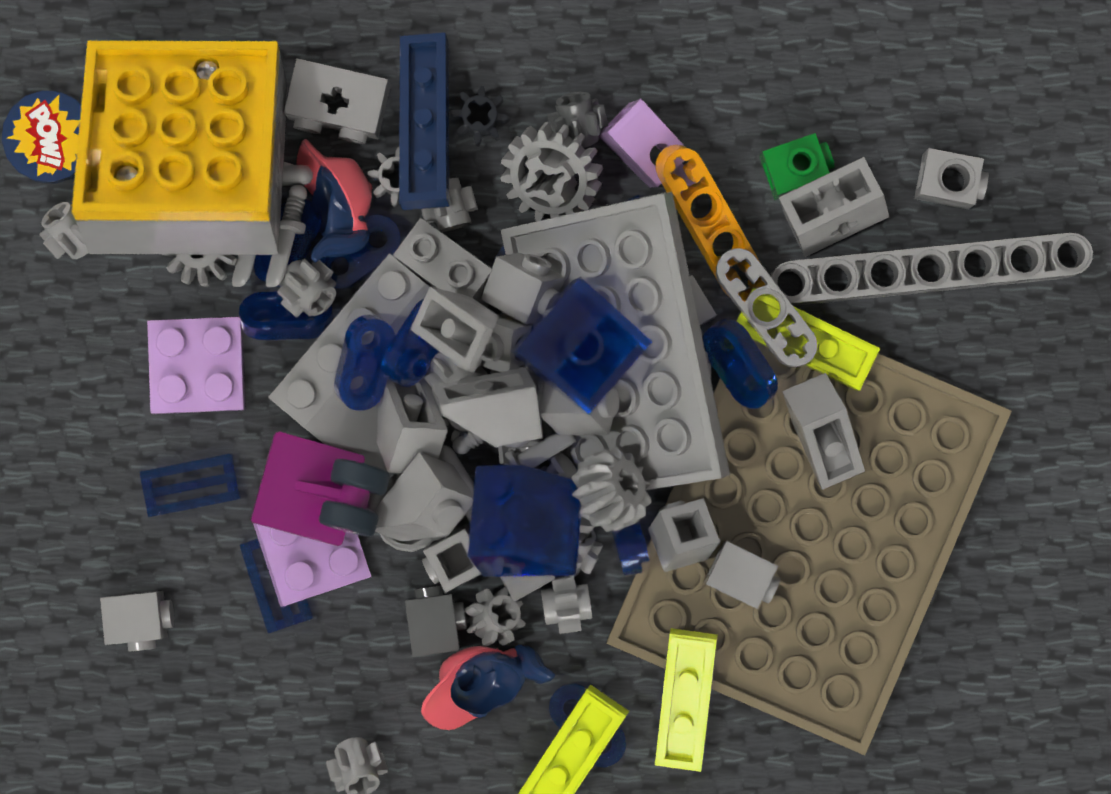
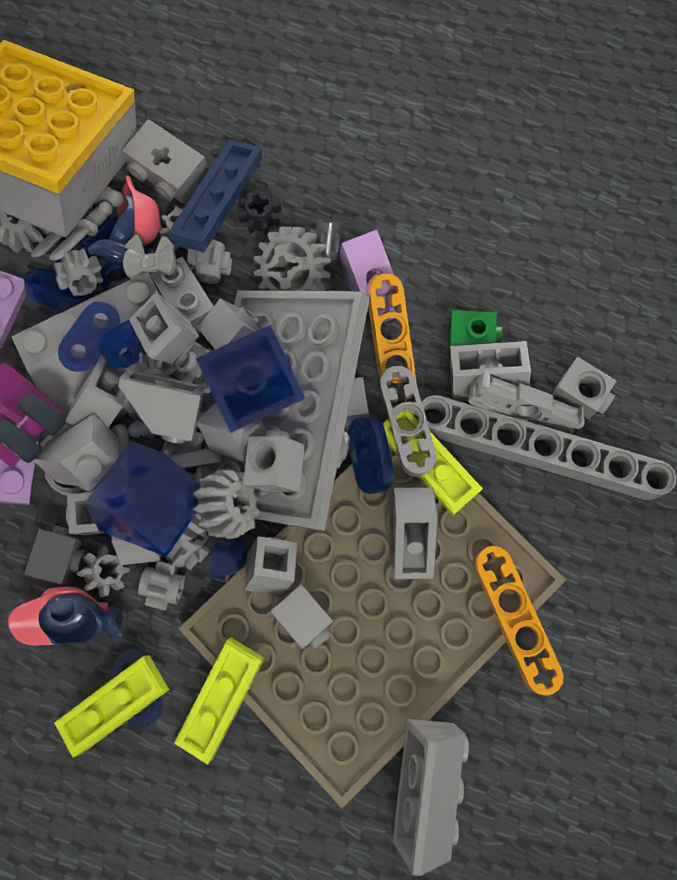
camera: 20 degrees right, 10 degrees down
(376, 249) = (137, 262): none -> light grey piece
(631, 437) = (274, 462): none -> light grey brick
(891, 231) = (509, 399): none -> light grey piece
(951, 699) = (429, 794): none -> light grey slope
(979, 473) = (523, 617): none -> light orange beam

